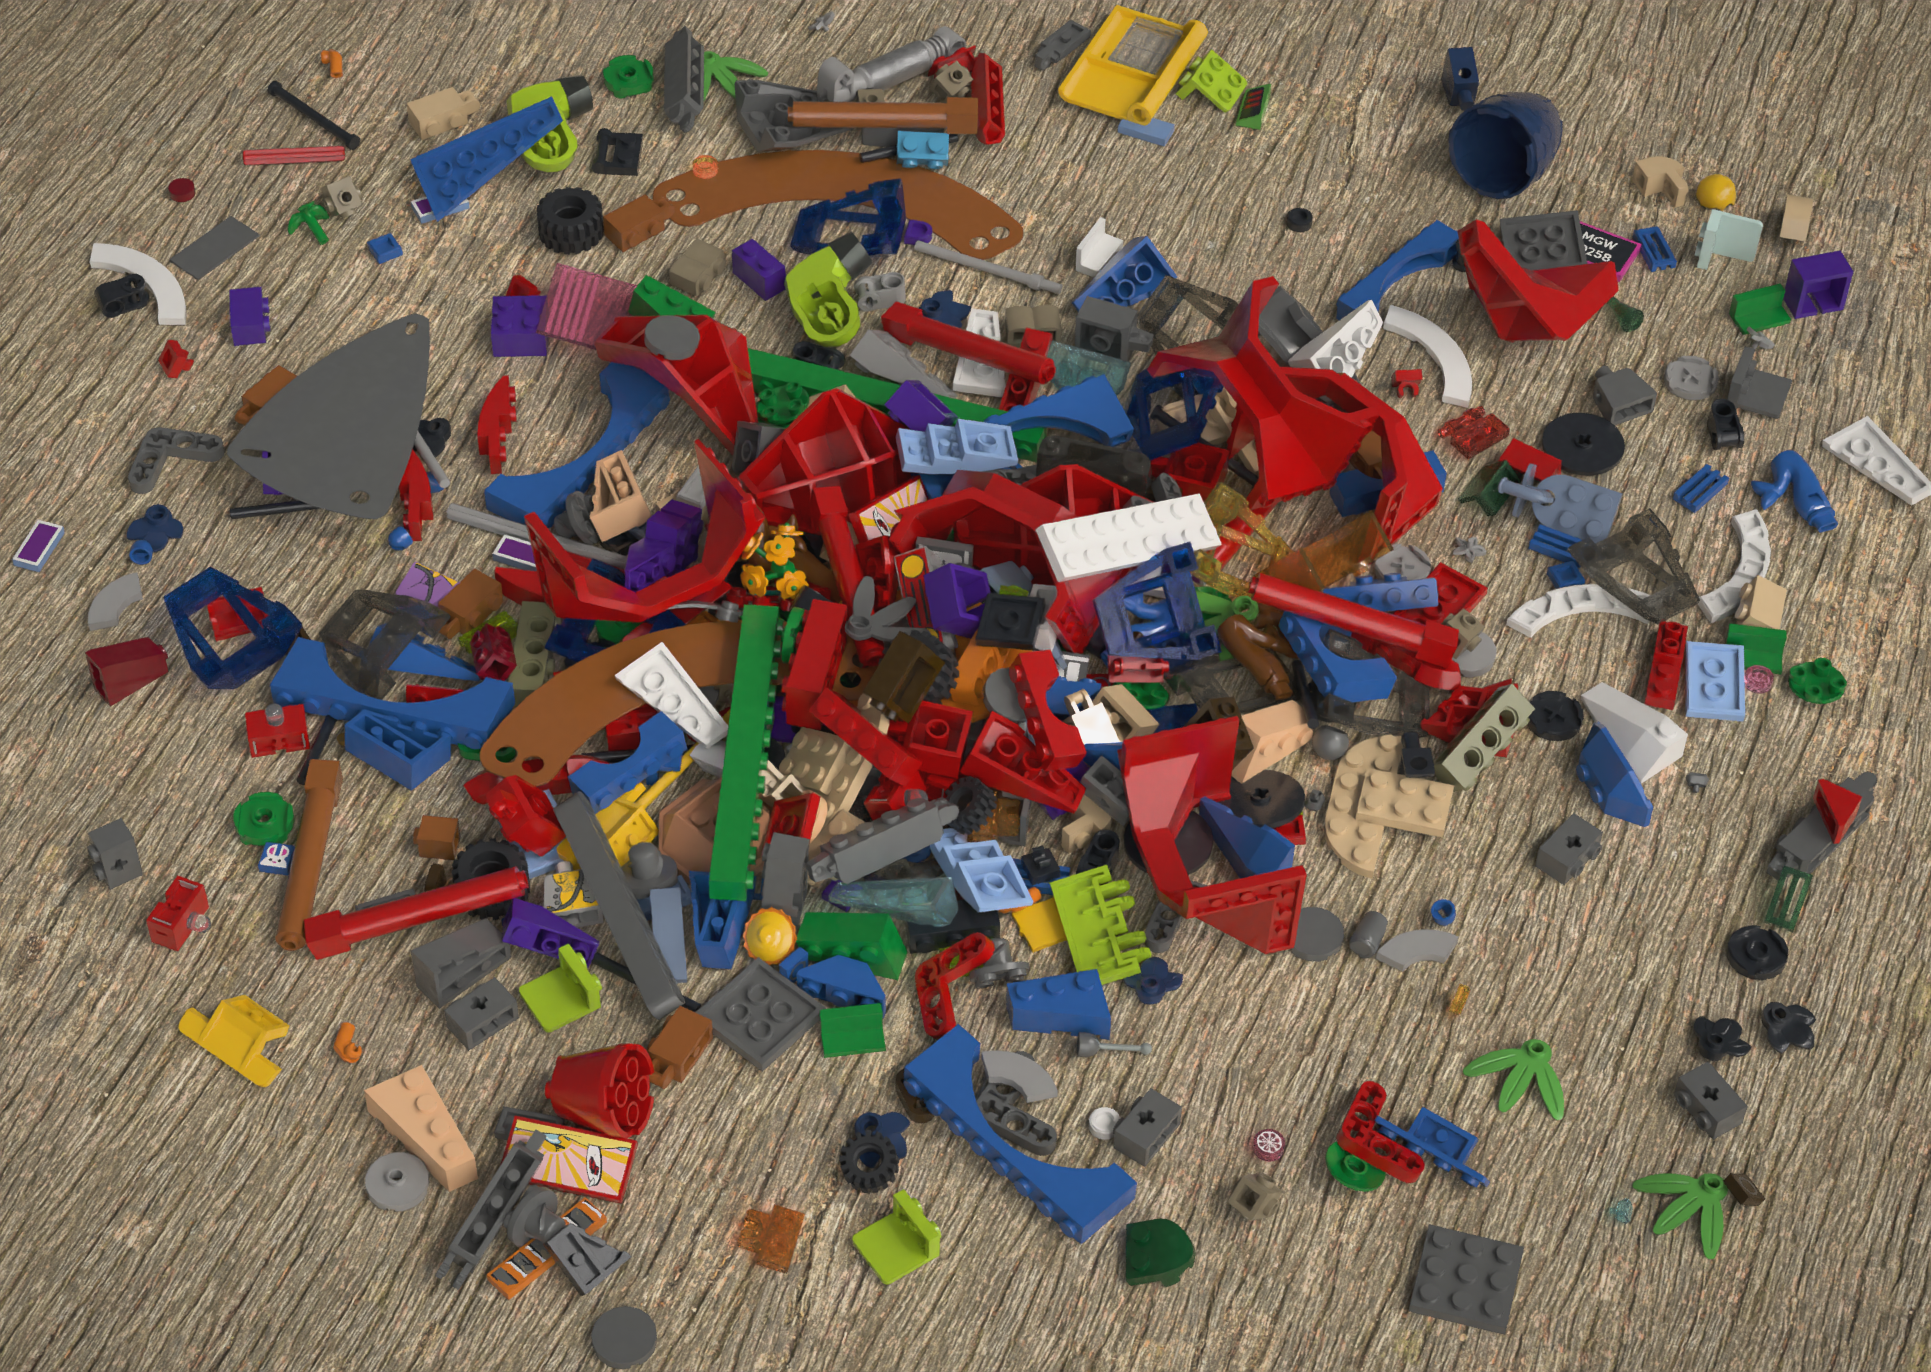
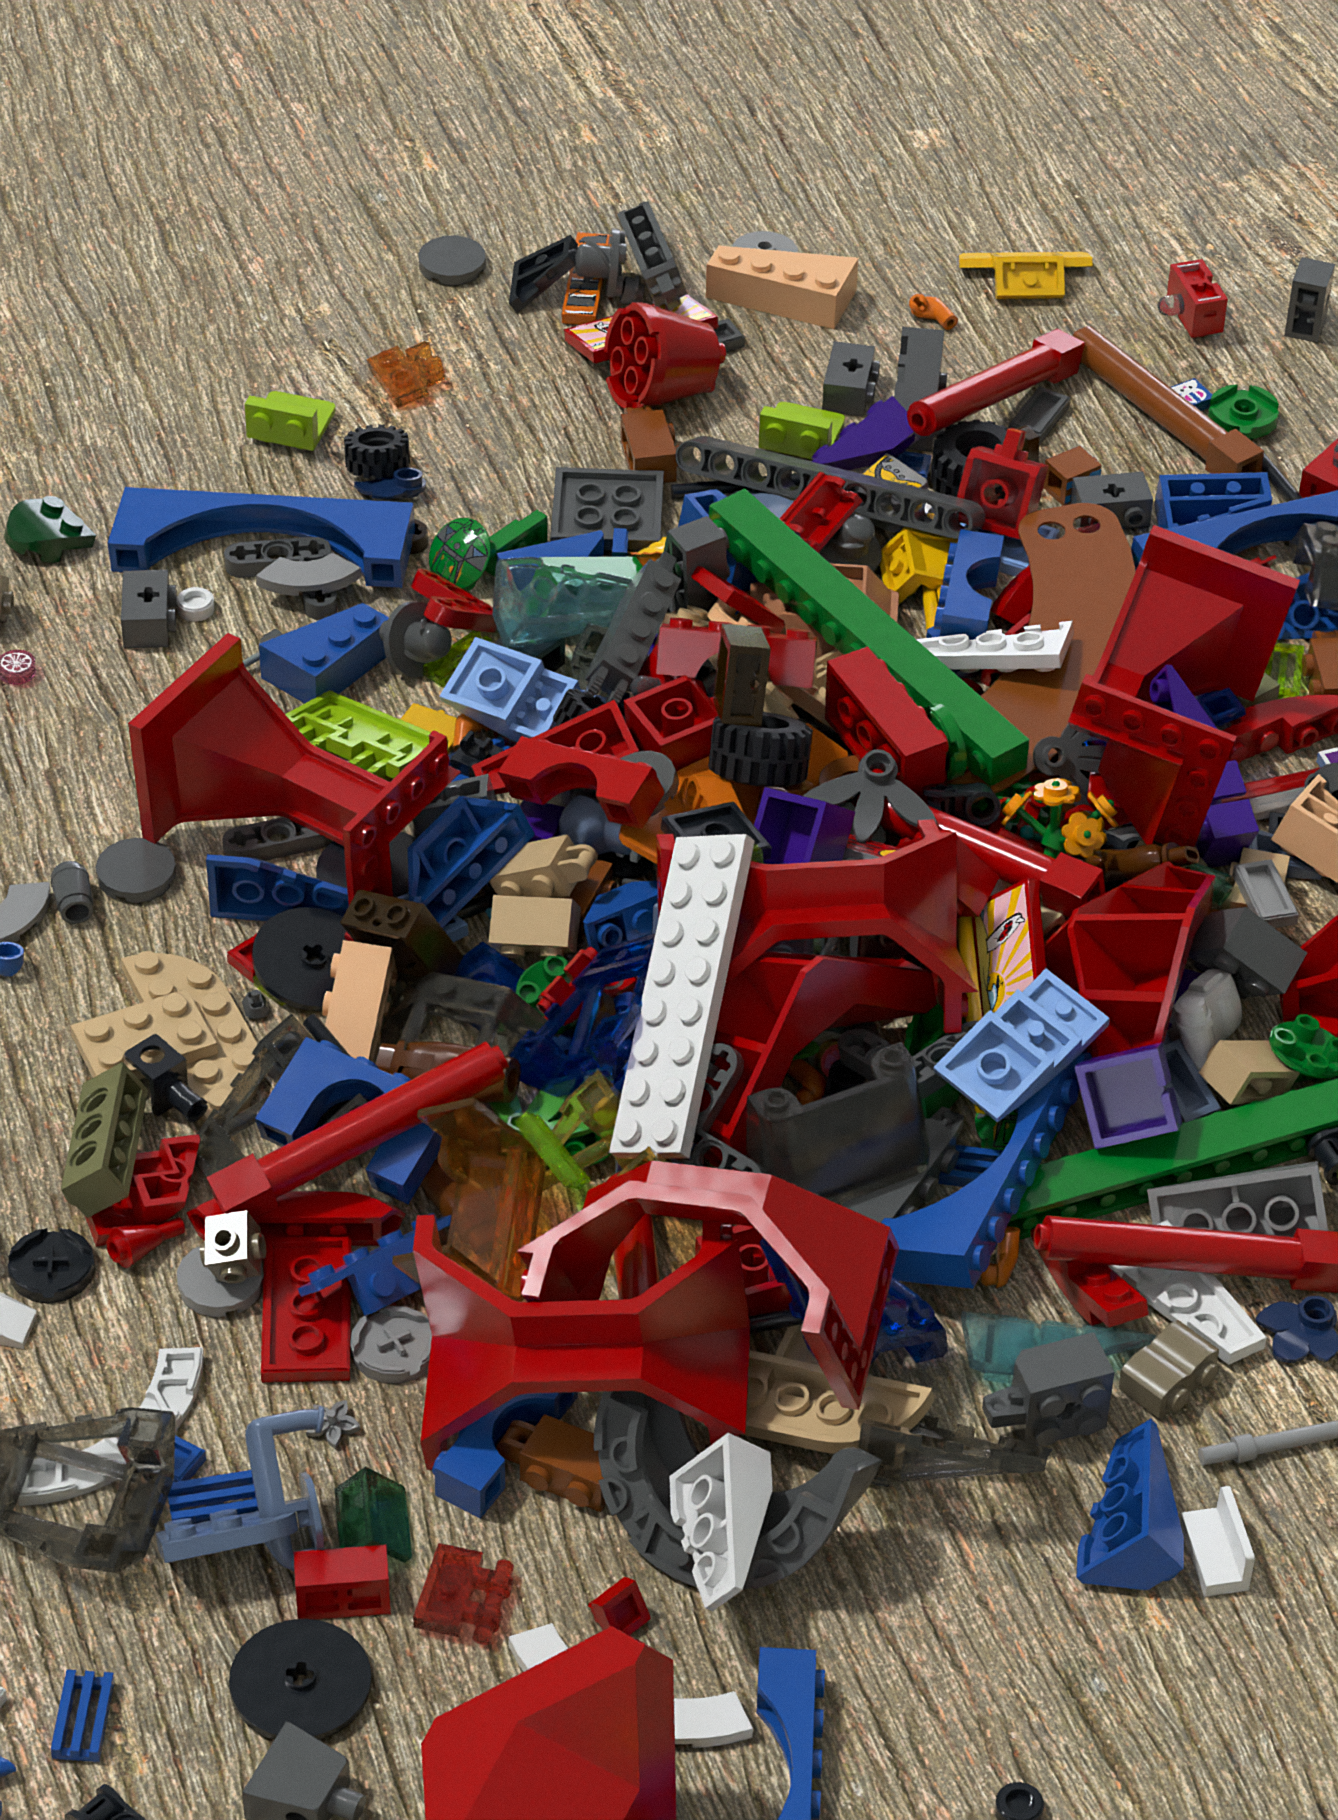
camera: 140 degrees right, 5 degrees down
(438, 797) = (1121, 493): none -> dark grey brick
(659, 869) = (821, 510): none -> red hinge
(901, 1026) = (461, 552): none -> green dish
(1243, 571) = (552, 1151): none -> clear neon green tile

